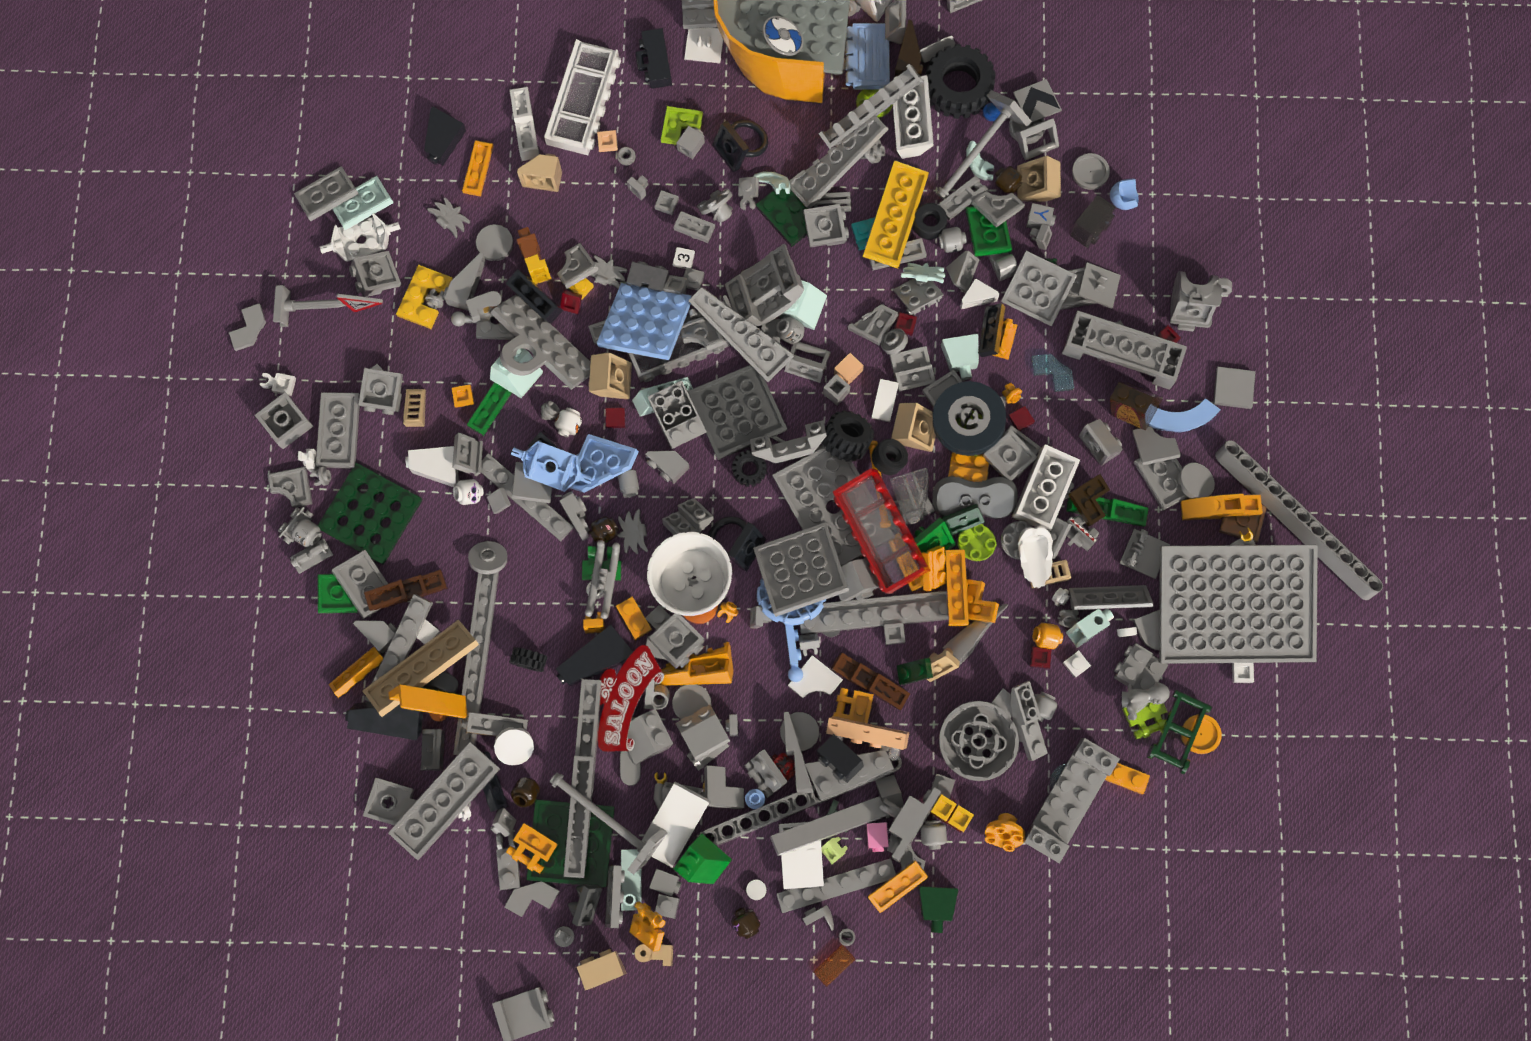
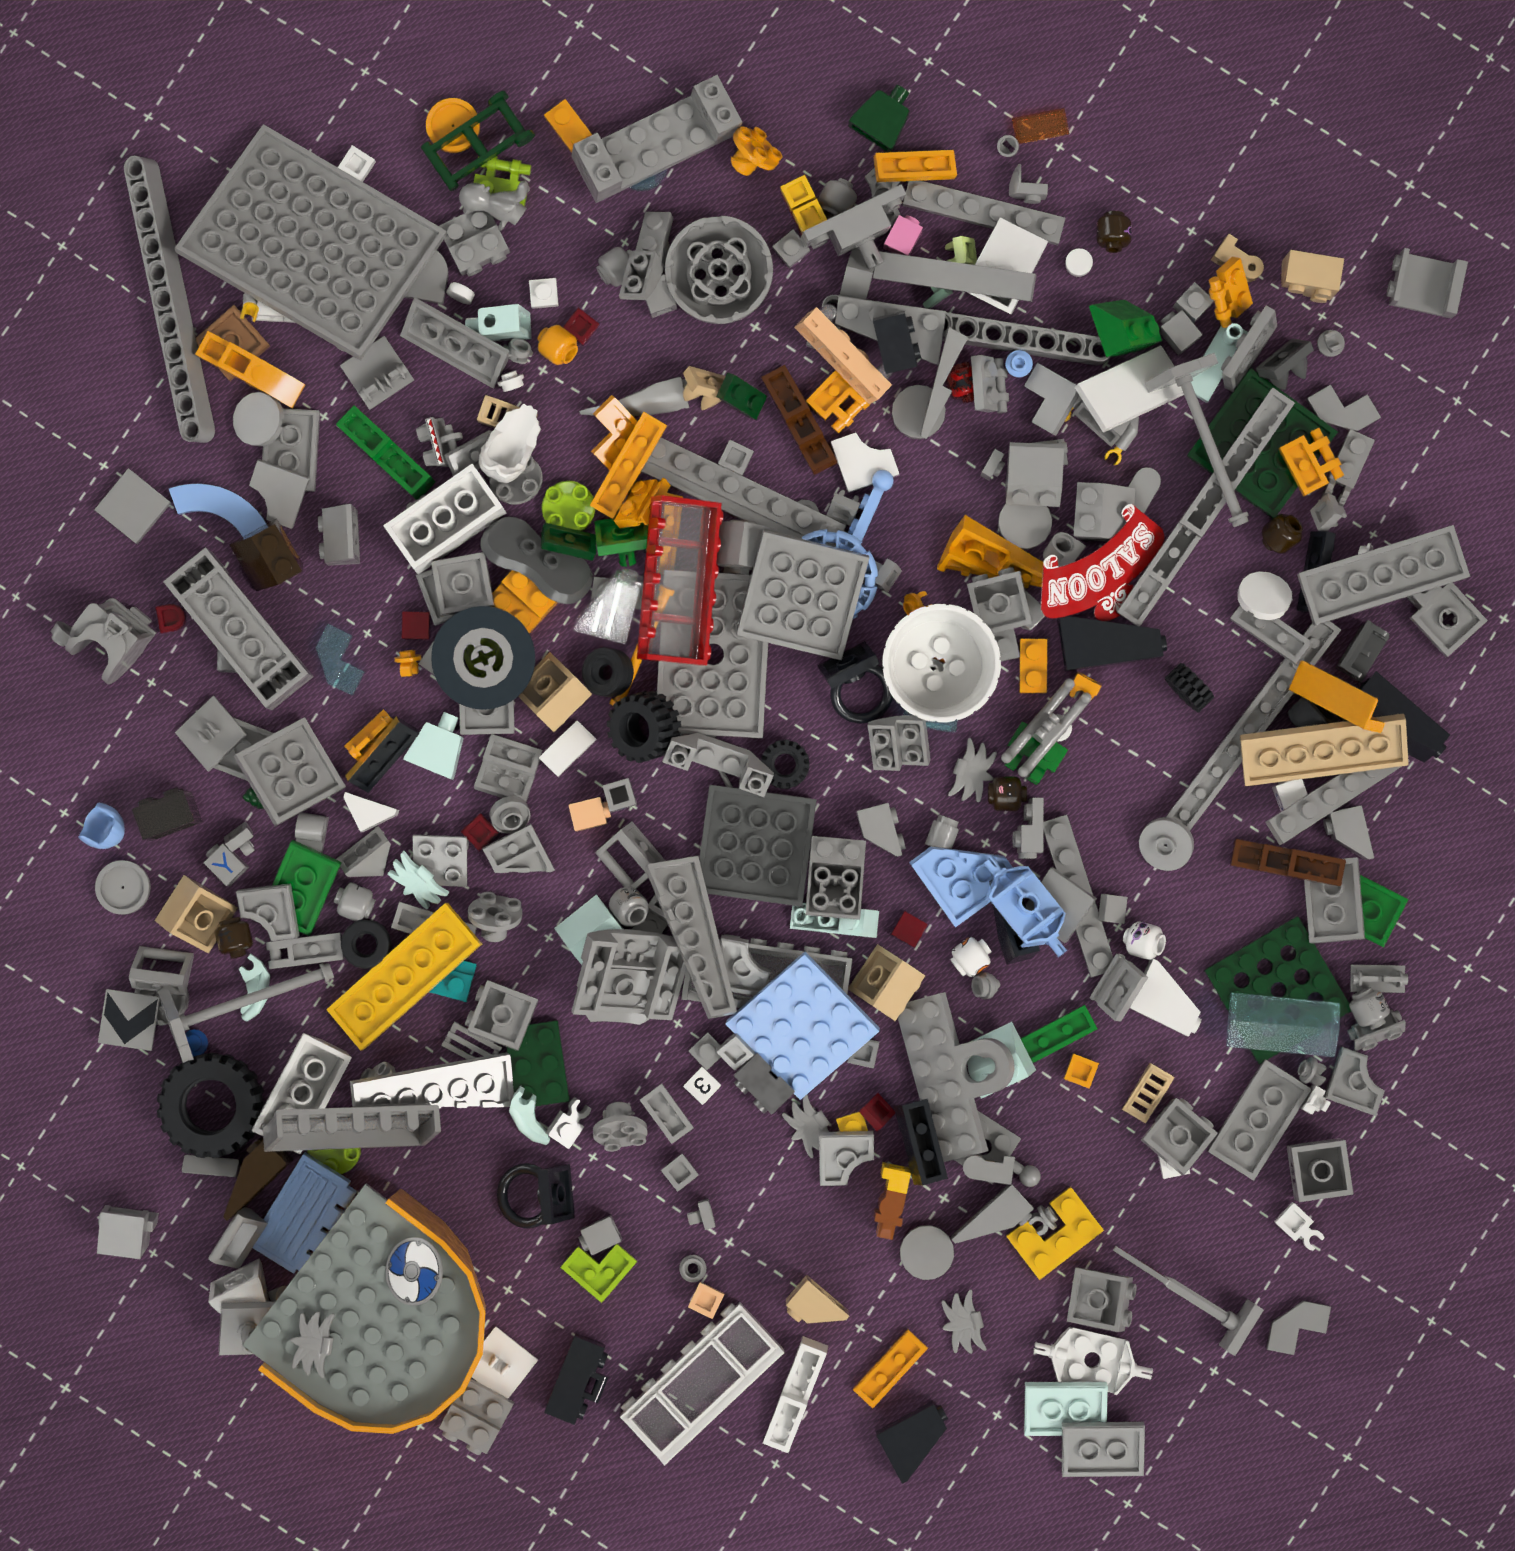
camera: 150 degrees left, 10 degrees up
(354, 492) = (1283, 1024): none -> clear light blue slope
(356, 672) = (1402, 799): light orange plate -> none
(866, 279) = (495, 915): none -> light grey plate
(1085, 499) = (406, 477): dark brown plate -> none

